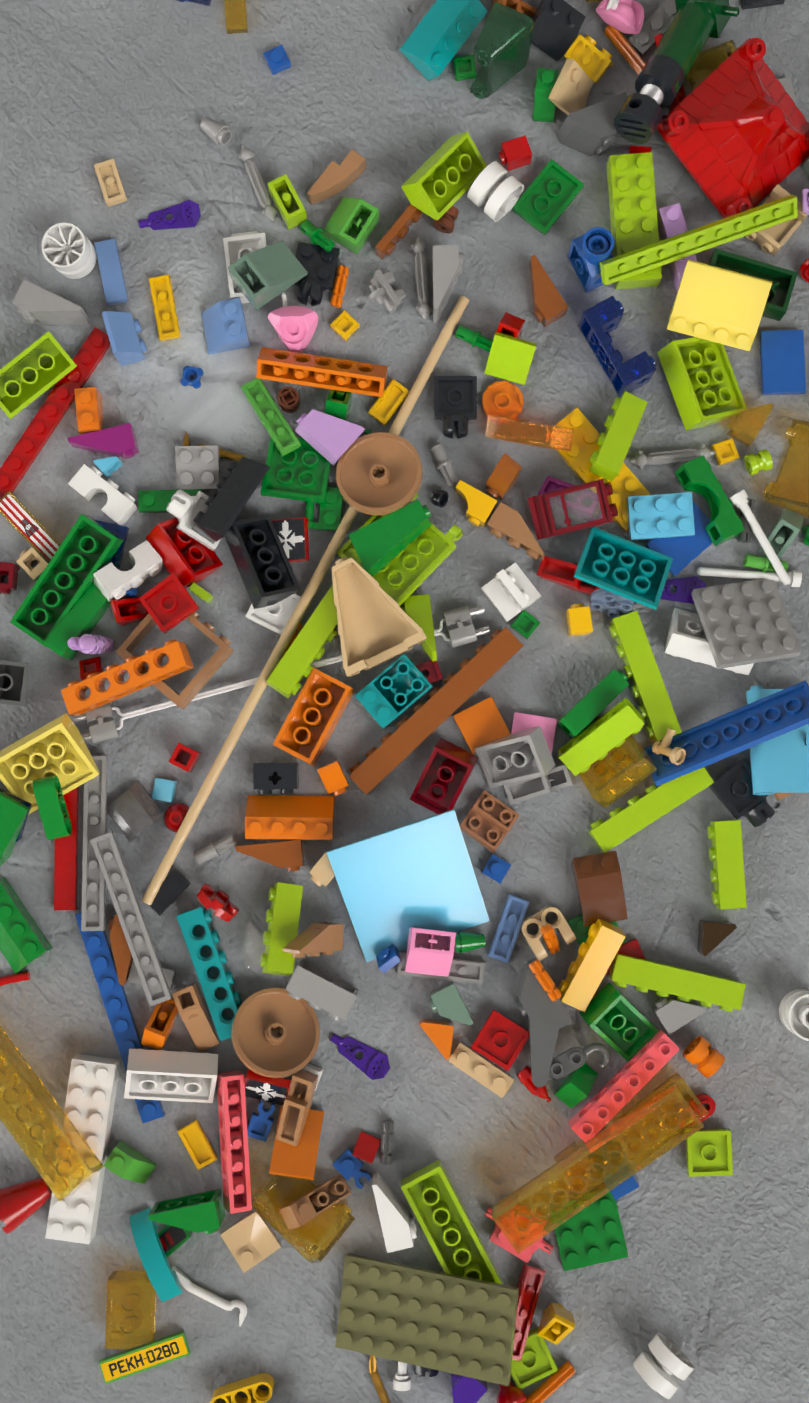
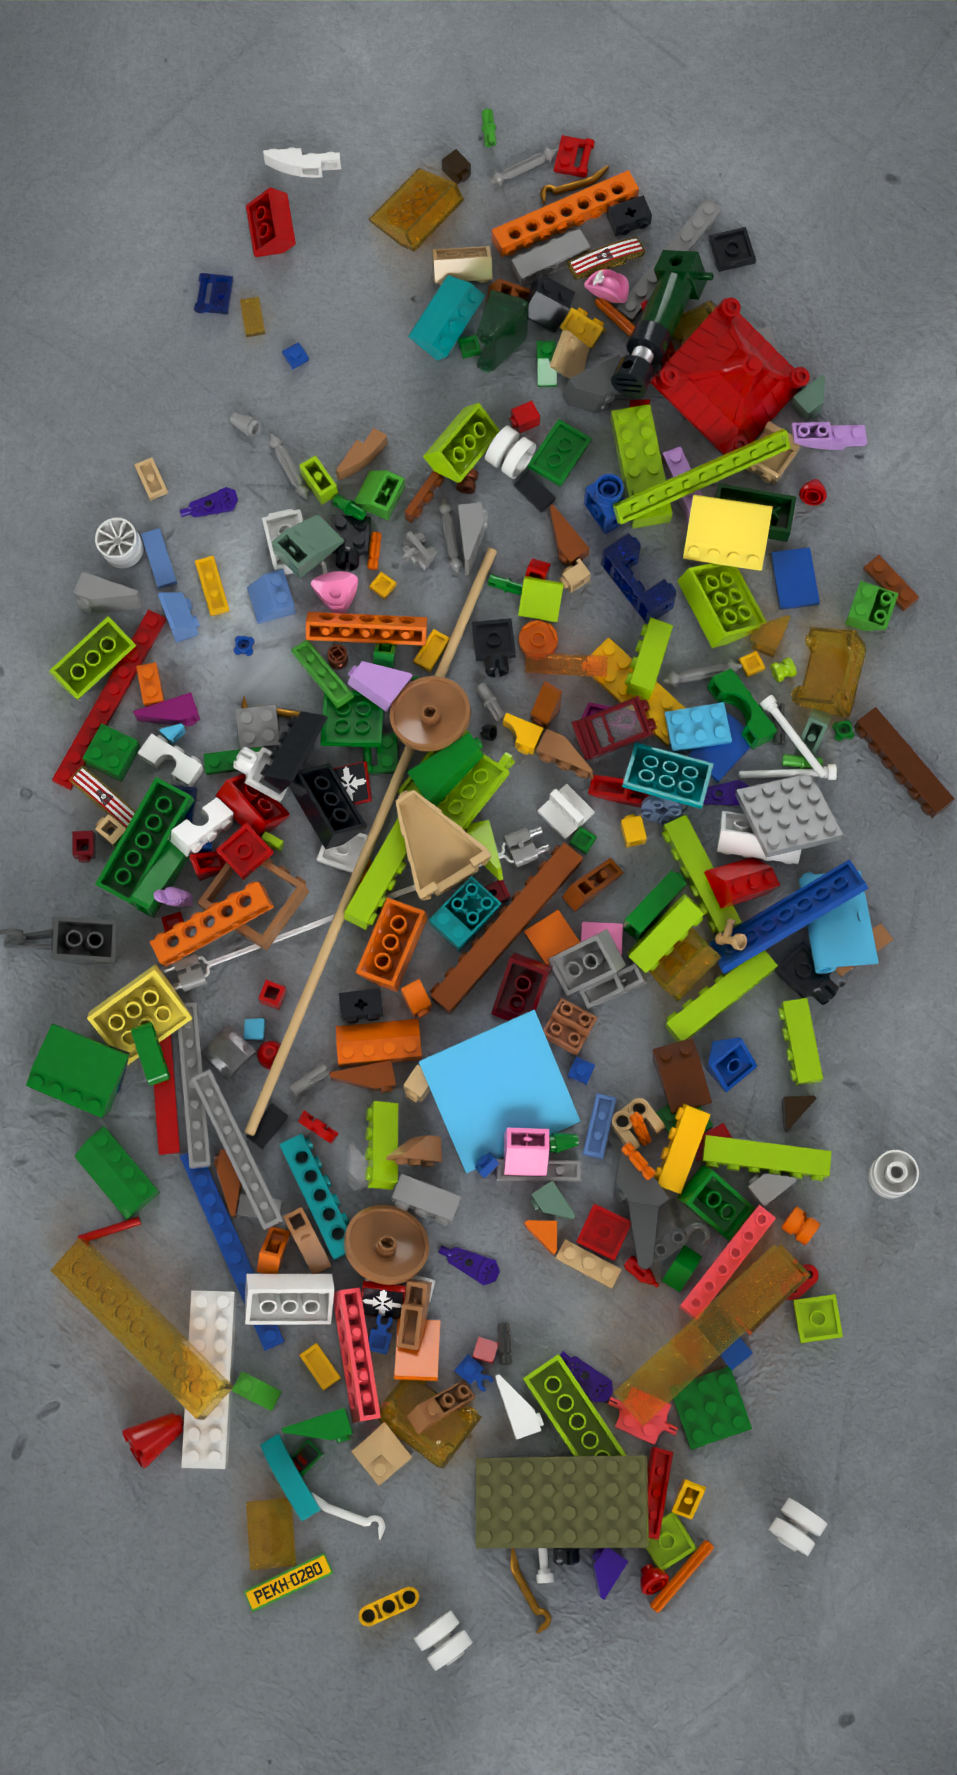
camera: 10 degrees left, 10 degrees down
(41, 479) = (111, 752): none -> green brick
(471, 1191) = (593, 1382): none -> dark purple piece
(516, 238) = (534, 492): none -> black tile
(530, 673) = (592, 884): none -> dark orange slope
(549, 336) = (575, 576): none -> tan brick
(651, 877) = (730, 1062): none -> blue slope
(686, 688) = (741, 881): none -> red slope

